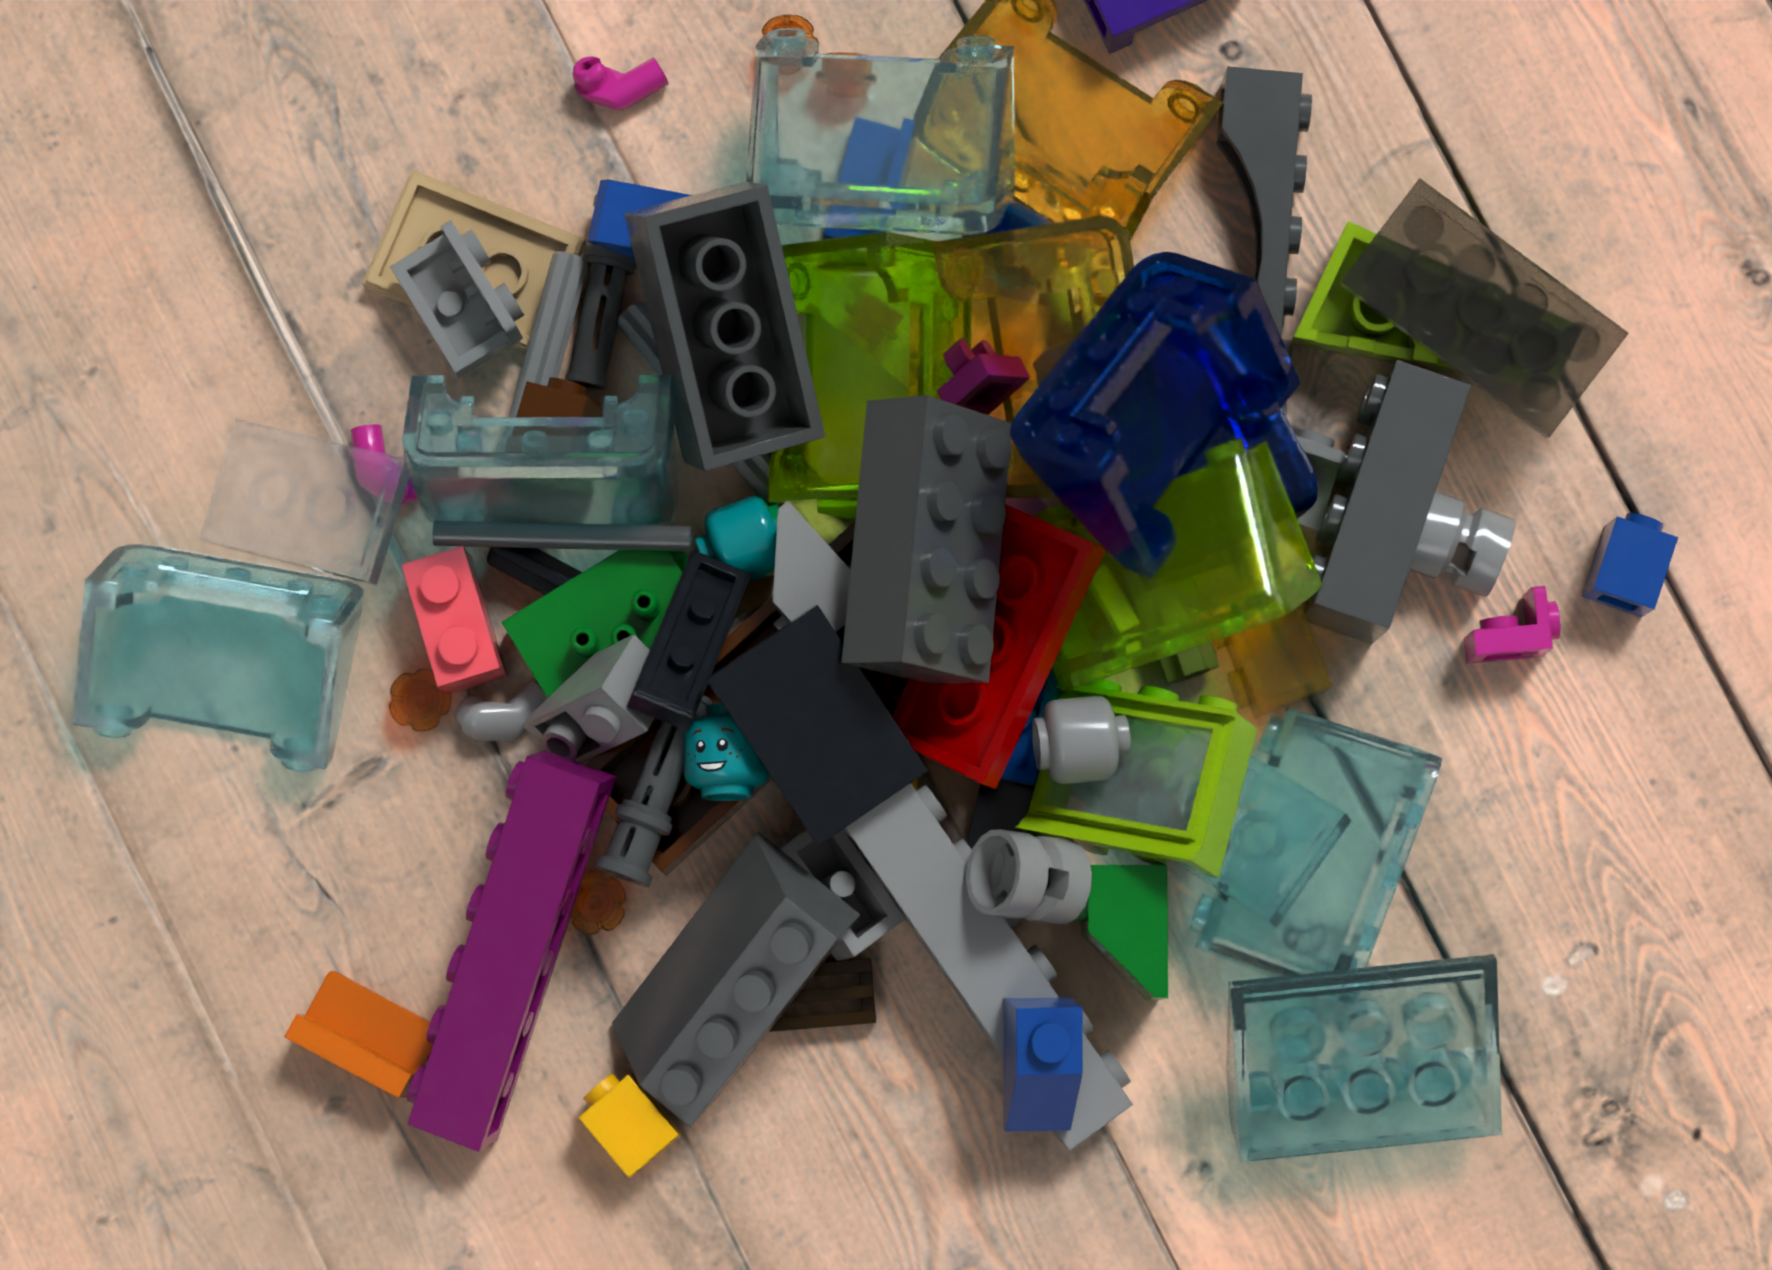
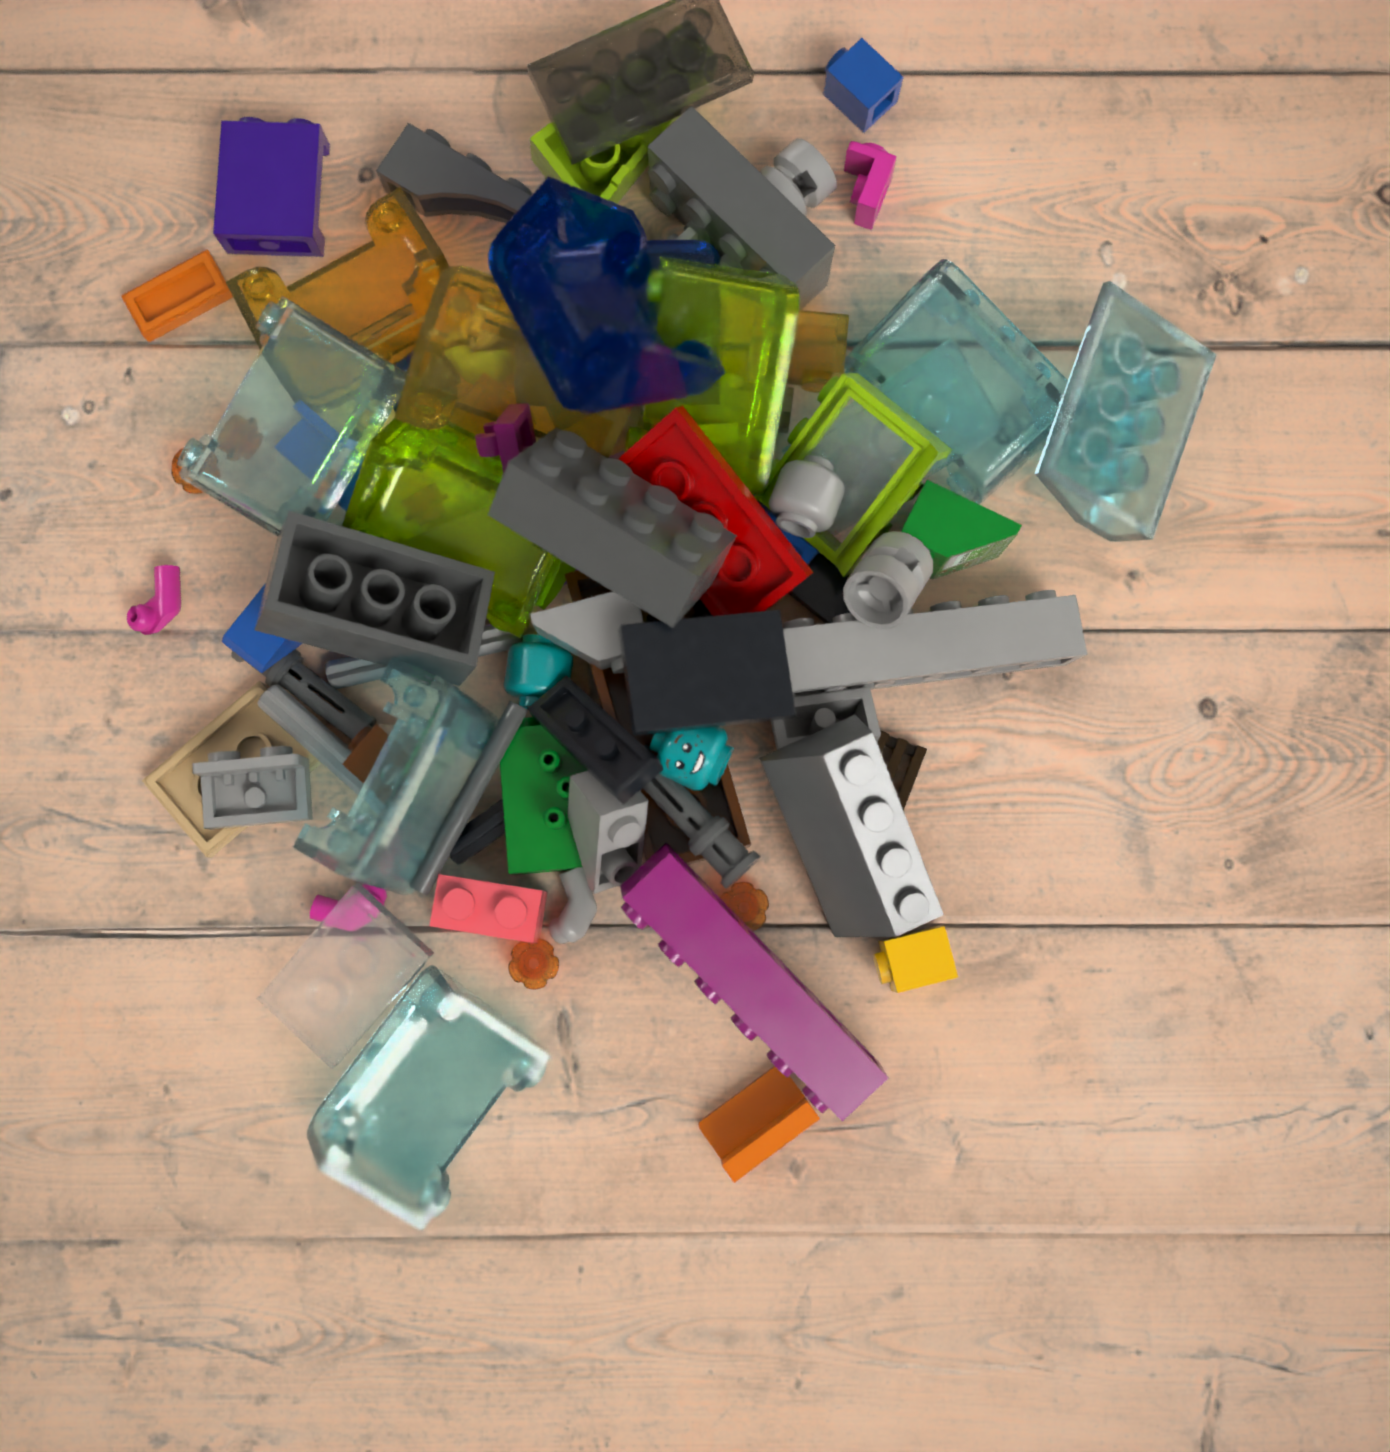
camera: 65 degrees left, 0 degrees up
(1041, 1063) = (1021, 636): blue slope -> none

